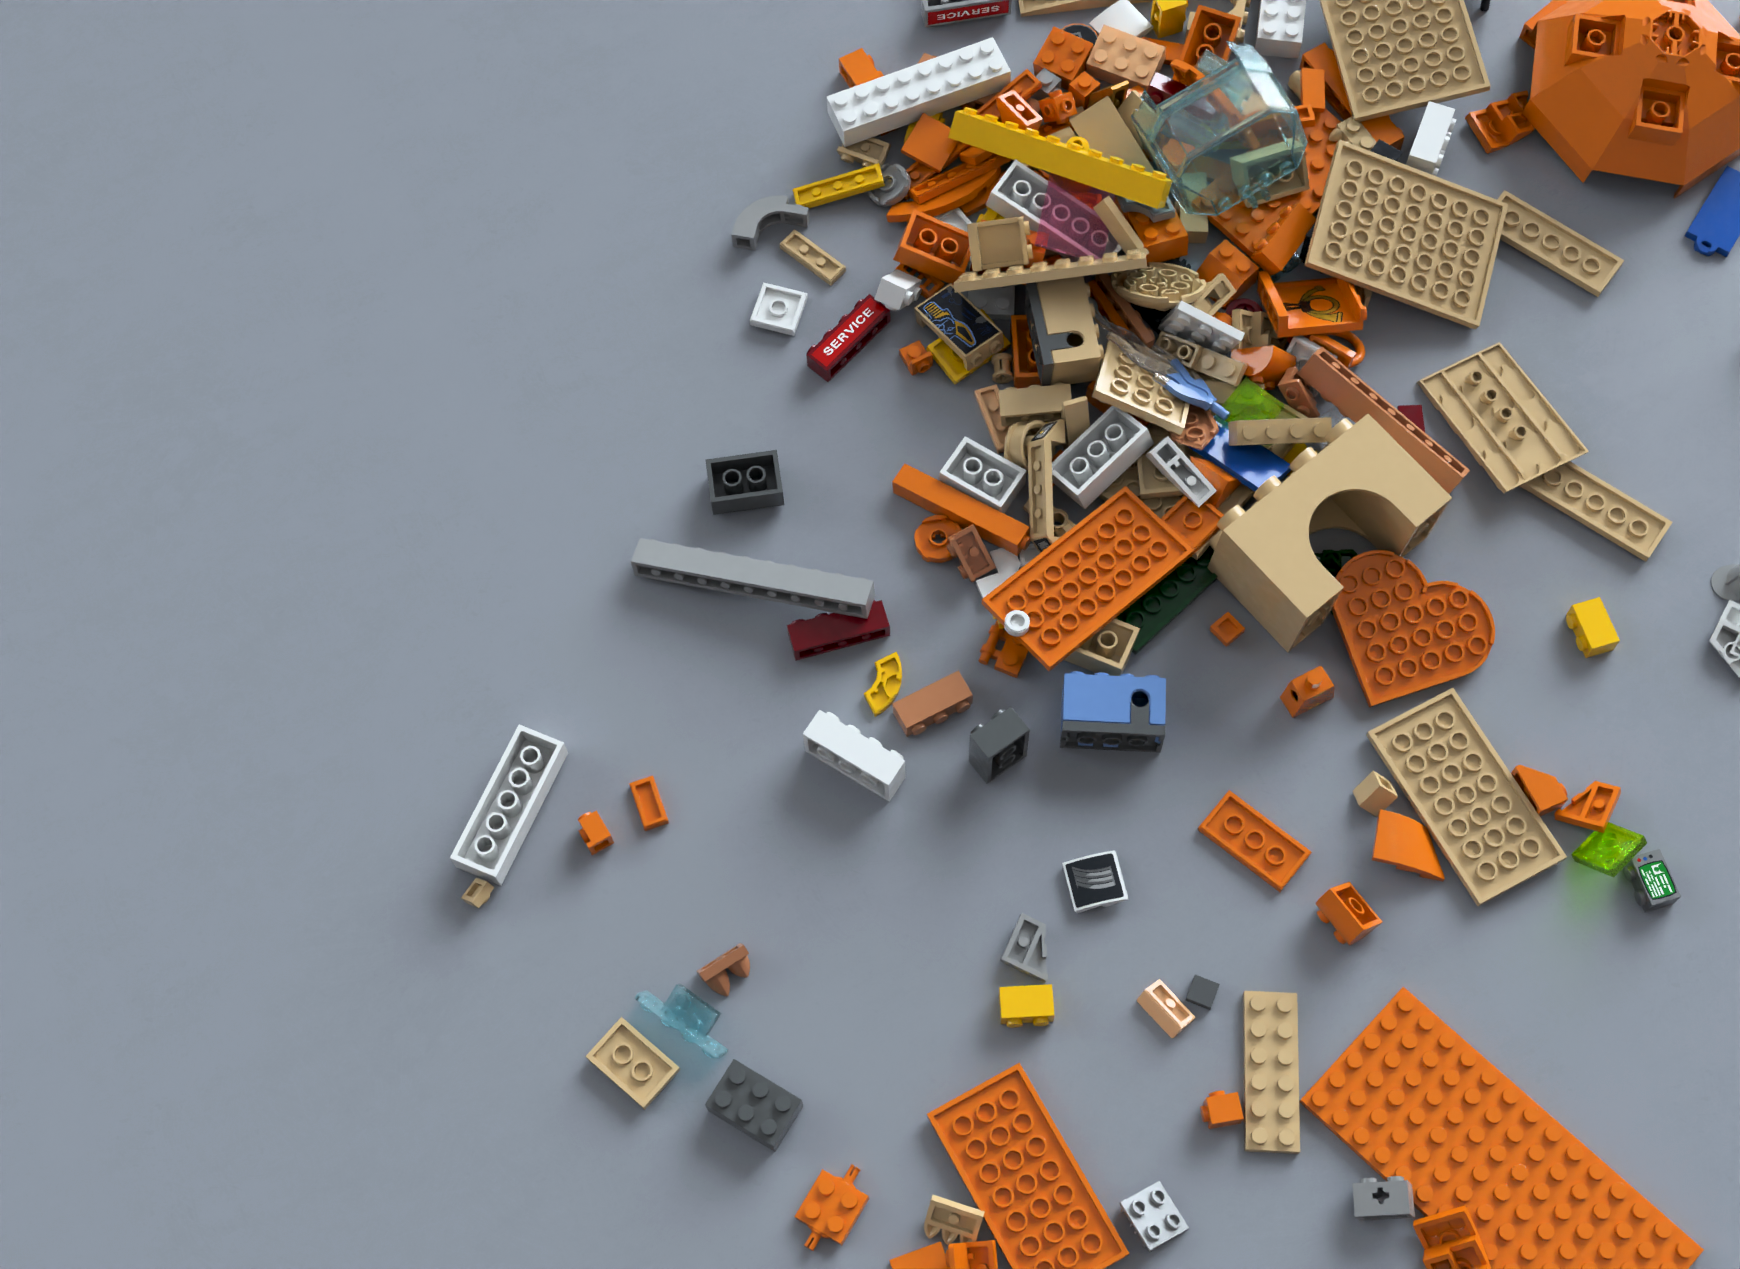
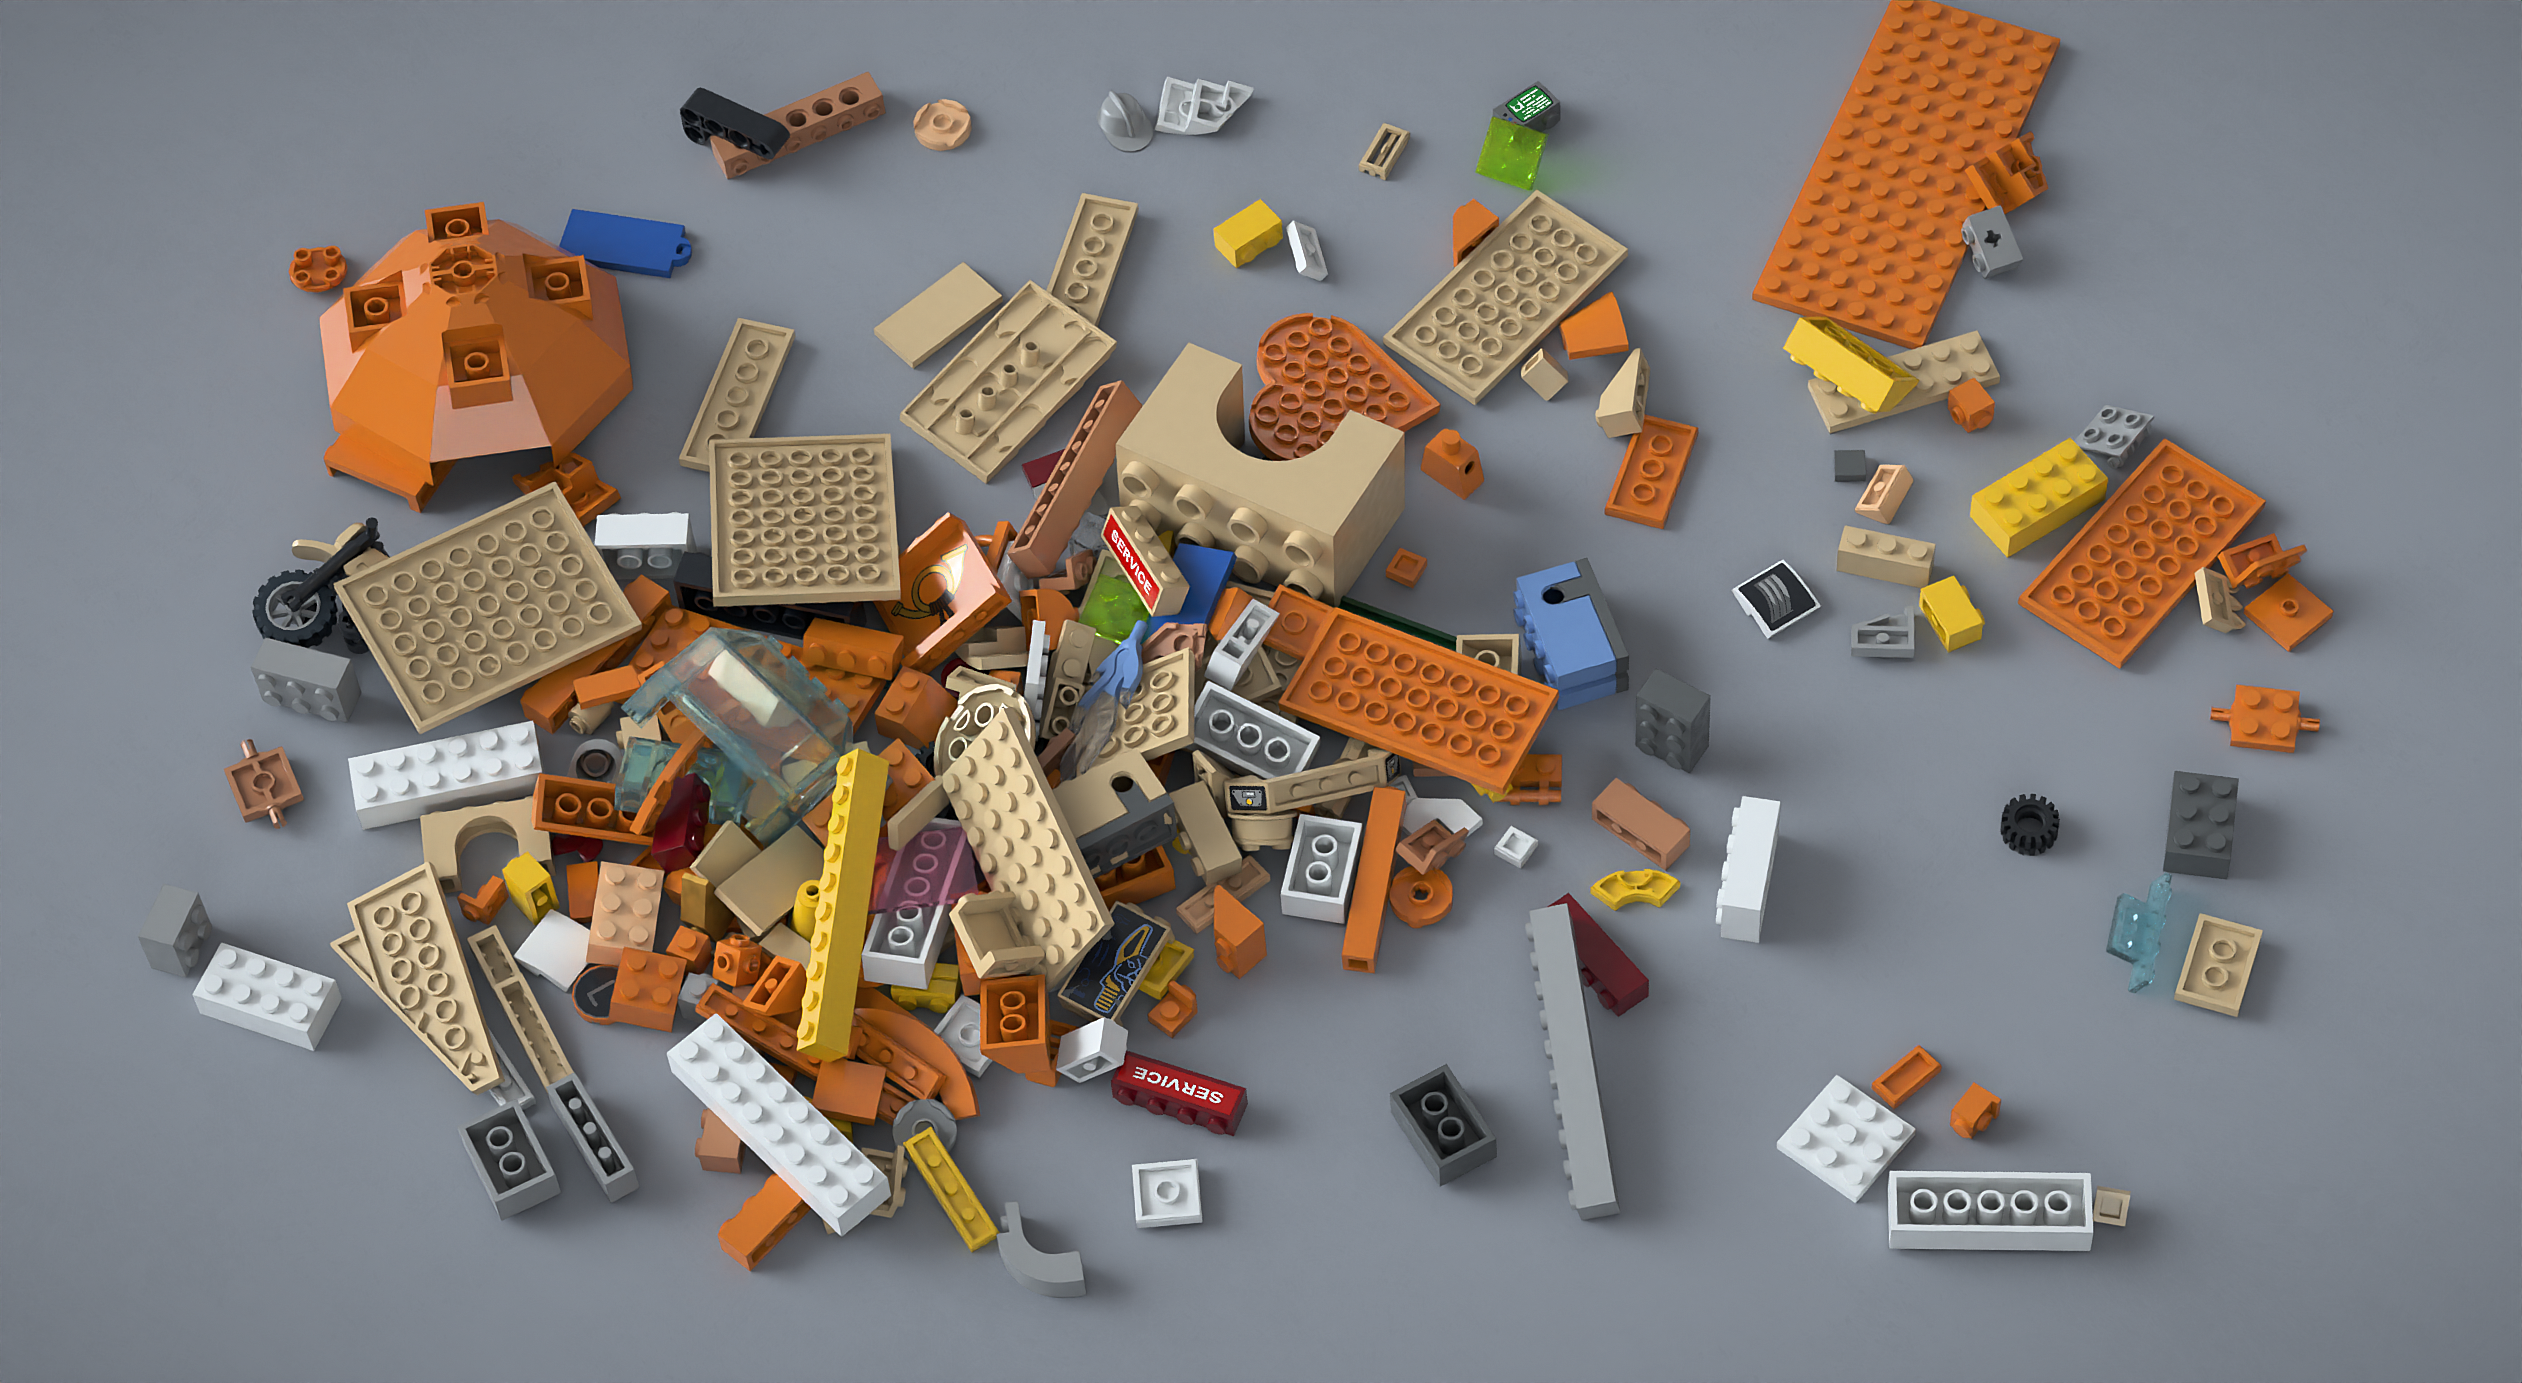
camera: 110 degrees left, 10 degrees down
(620, 742) = (1846, 1138): none -> white plate
(715, 974) = (2060, 918): nougat tile -> none
(812, 257) = (1068, 1188): tan tile -> none
(813, 964) = (2029, 809): none -> black tyre
(952, 402) = (1237, 935): none -> orange slope
(954, 617) = (1515, 847): none -> white tile
(1002, 368) = (1155, 905): tan bush -> none
(1016, 623) = (1519, 738): white tile -> none
(1097, 976) = (1885, 557): none -> tan brick
(1109, 1122) = (2038, 497): none -> yellow brick
(1293, 1024) = (1849, 364): none -> yellow slope
(1328, 843) = (1624, 399): none -> tan slope
(1347, 913) = (1699, 356): orange brick -> none
(1353, 133) = (665, 624): tan plate -> none
(1560, 664) = (1306, 251): none -> white plate
(1586, 394) = (938, 315): none -> tan tile
(1592, 807) = (1465, 180): orange wing -> none
(1640, 762) = (1392, 158): none -> tan tile

